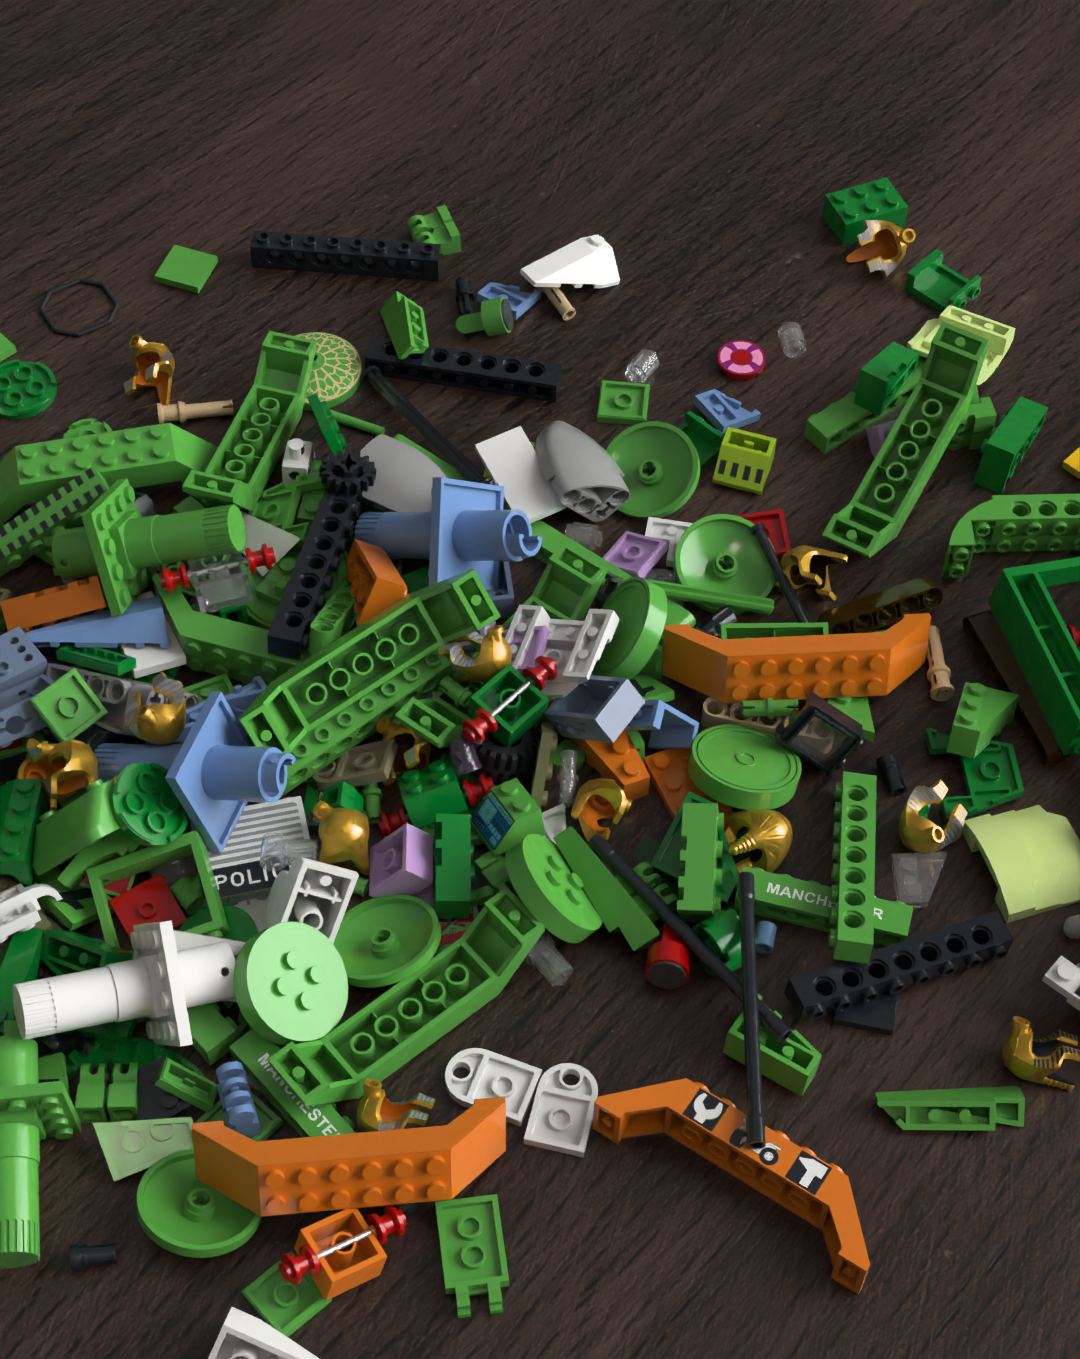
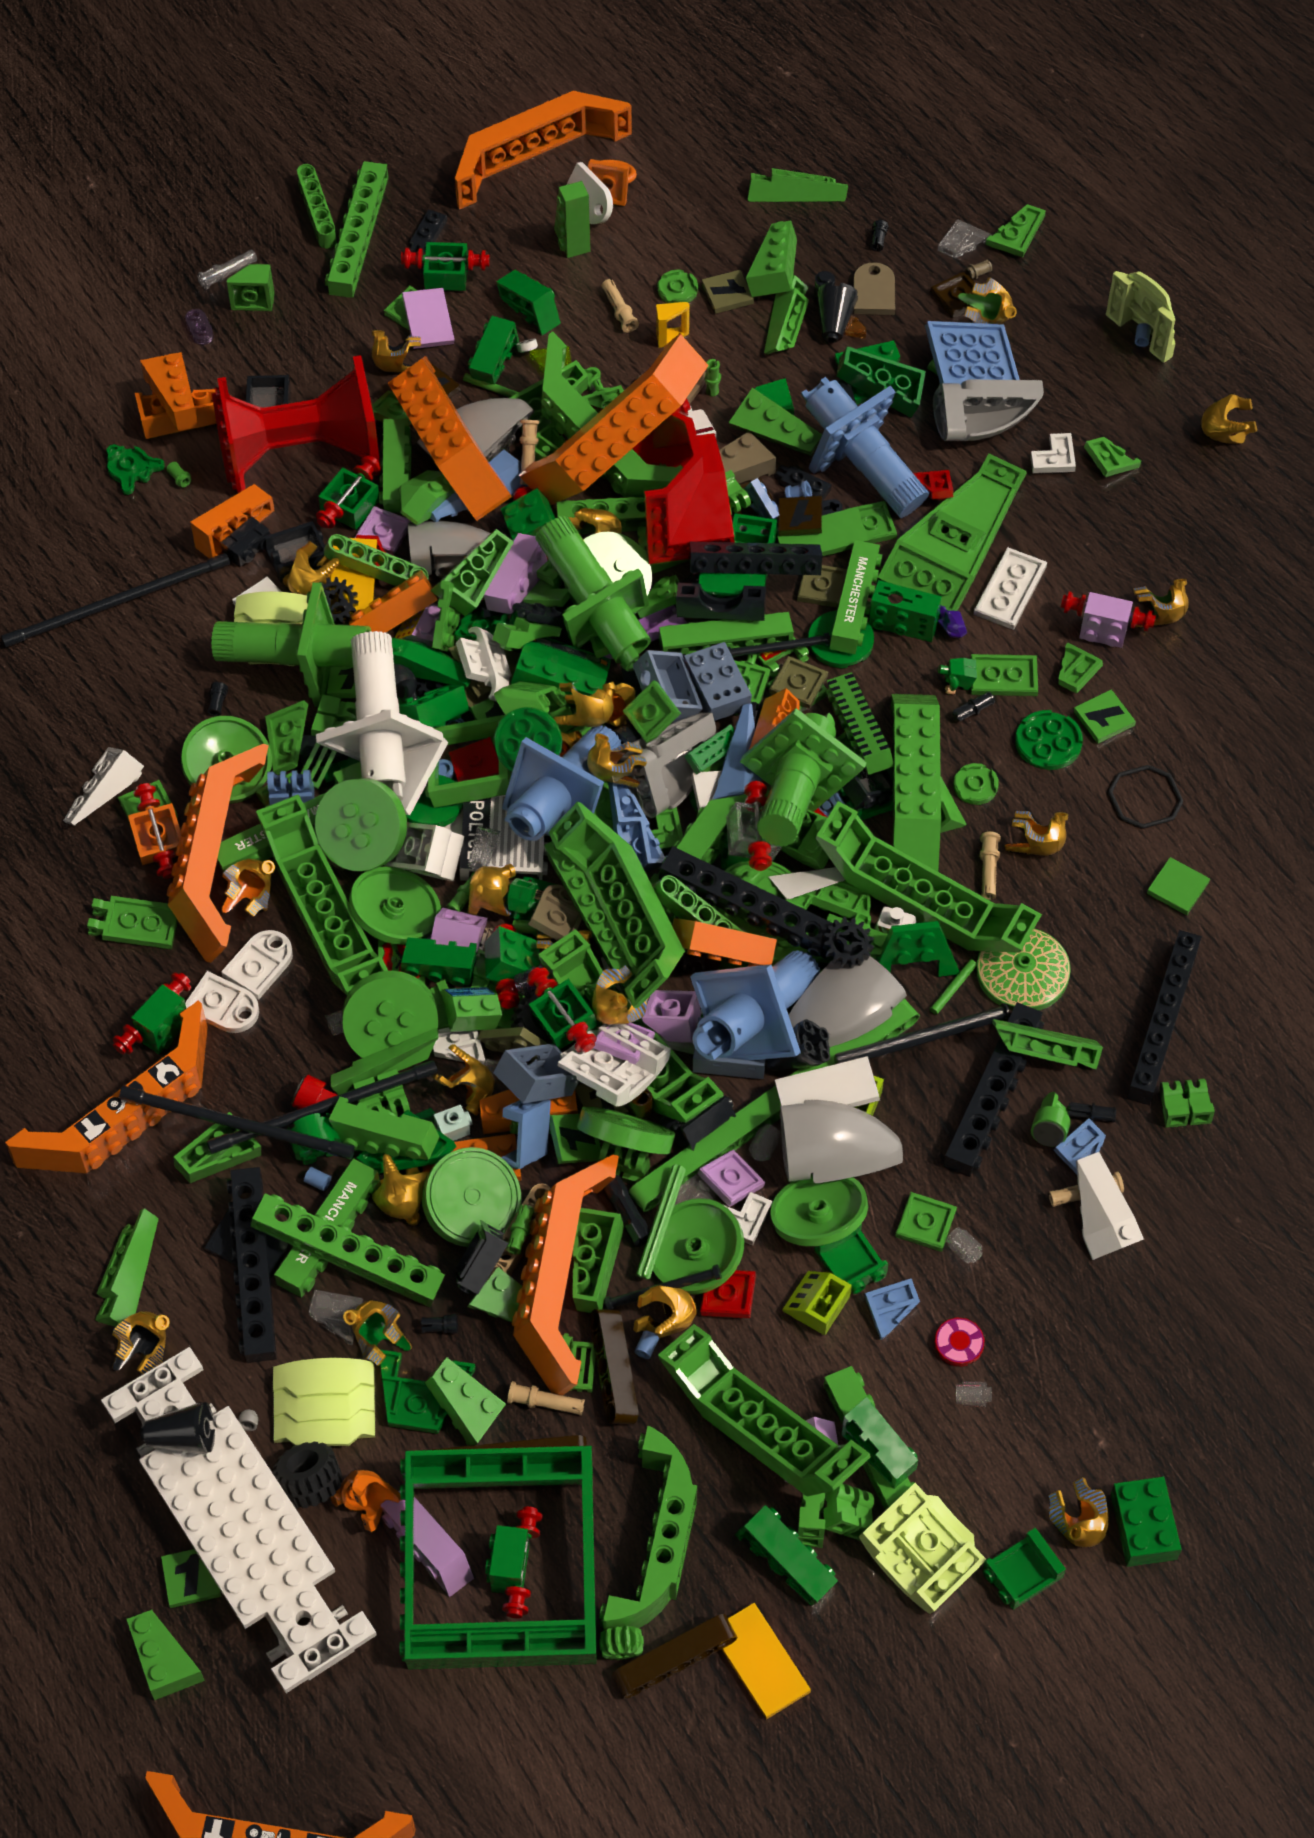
camera: 105 degrees right, 5 degrees up
(617, 1162) = (158, 1018): none -> green brick
(652, 816) = (453, 1122): none -> light aqua brick
(843, 592) = (646, 1344): none -> medium blue hinge

